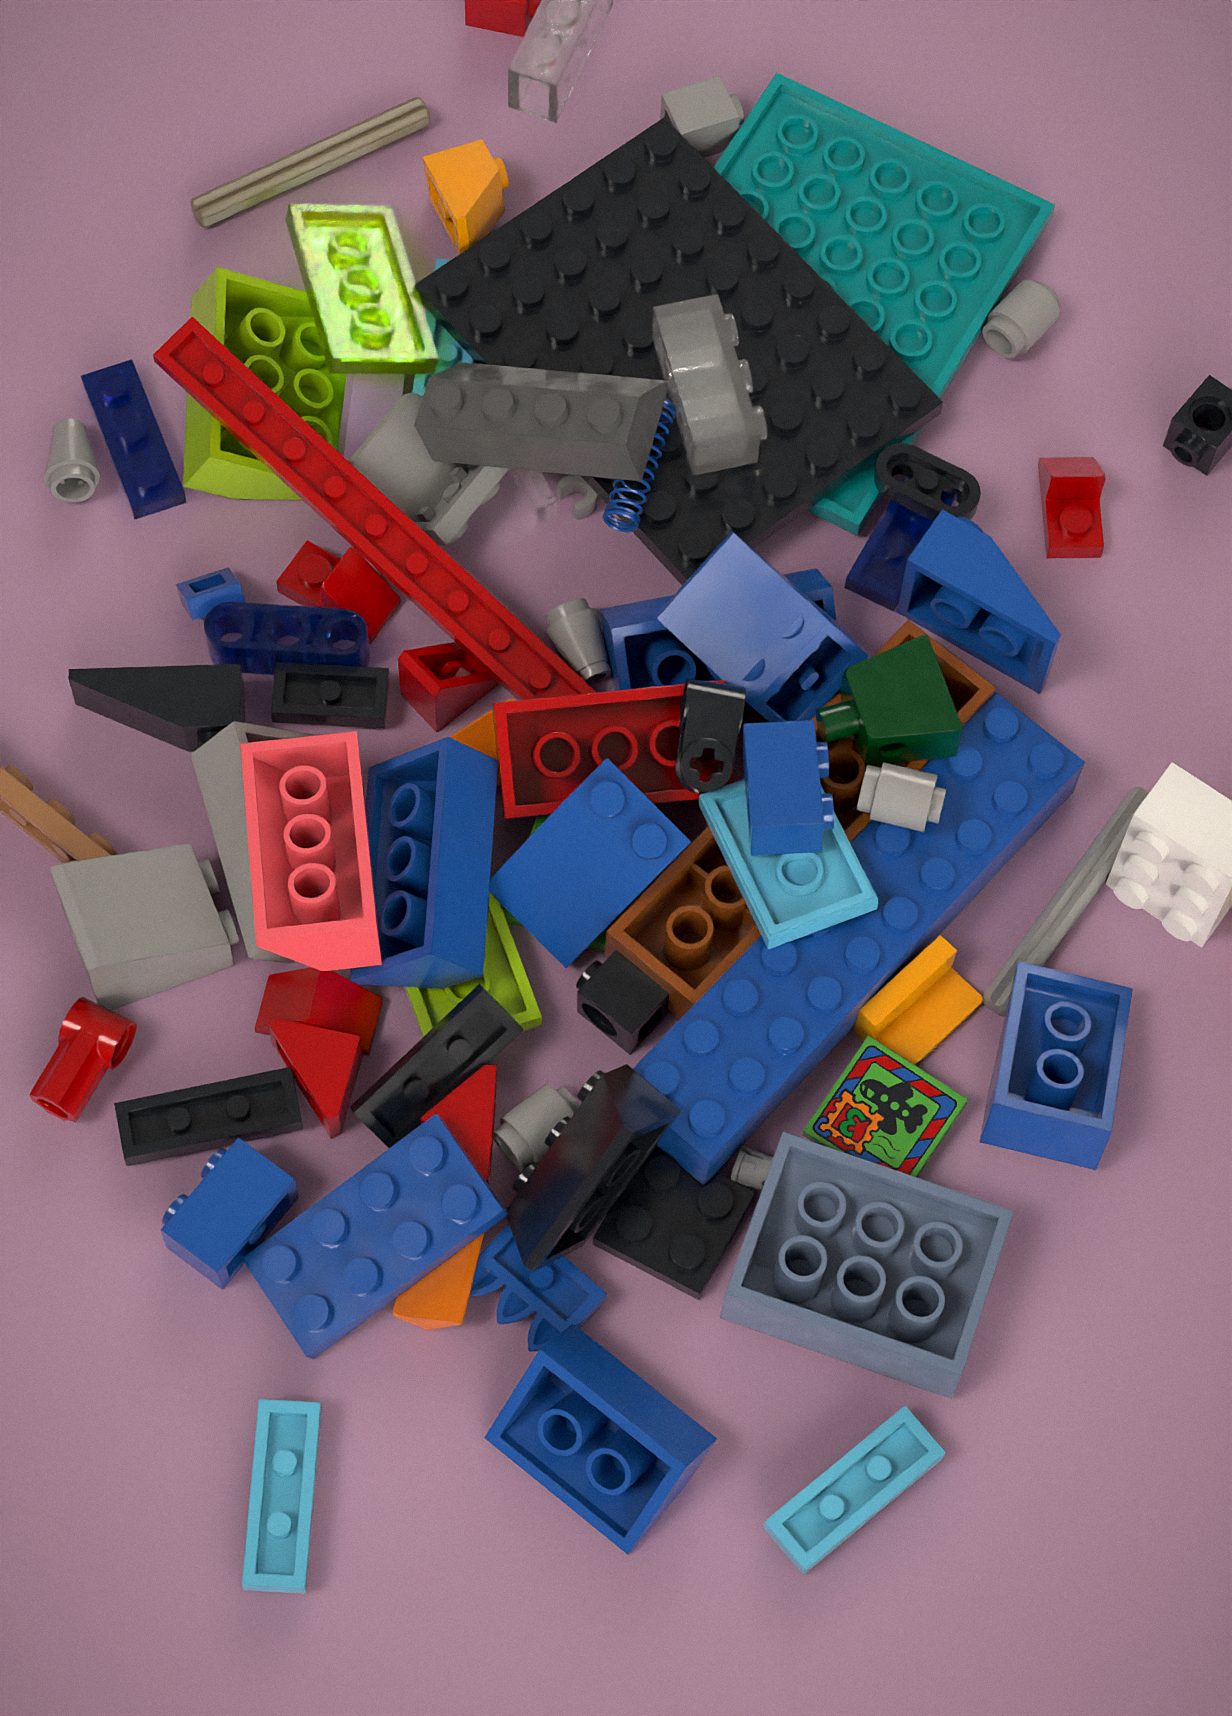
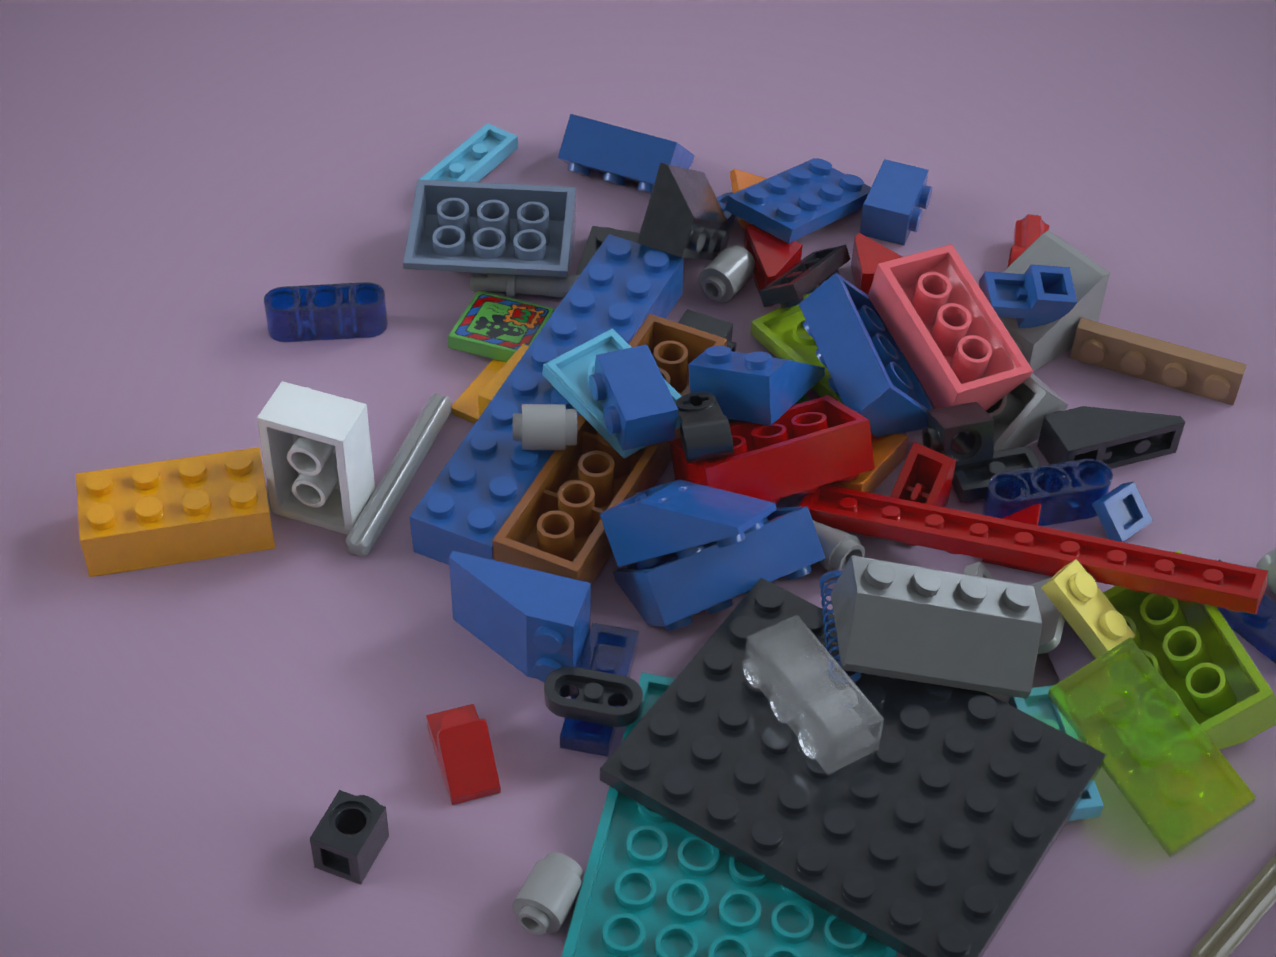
camera: 165 degrees right, 20 degrees down
(169, 867) = (1032, 297): none -> blue brick
(208, 1116) = (963, 231): black plate -> none
(282, 1496) = (795, 107): medium azure plate -> none
(351, 420) = (1087, 609): none -> light yellow plate
(371, 713) = (975, 432): none -> black brick
(466, 191) = (1108, 860): light orange slope -> none
(895, 707) = (566, 484): dark green torso -> none
(1057, 1066) = (390, 353): blue slope -> none
(1154, 1187) = (325, 312): none -> clear blue beam

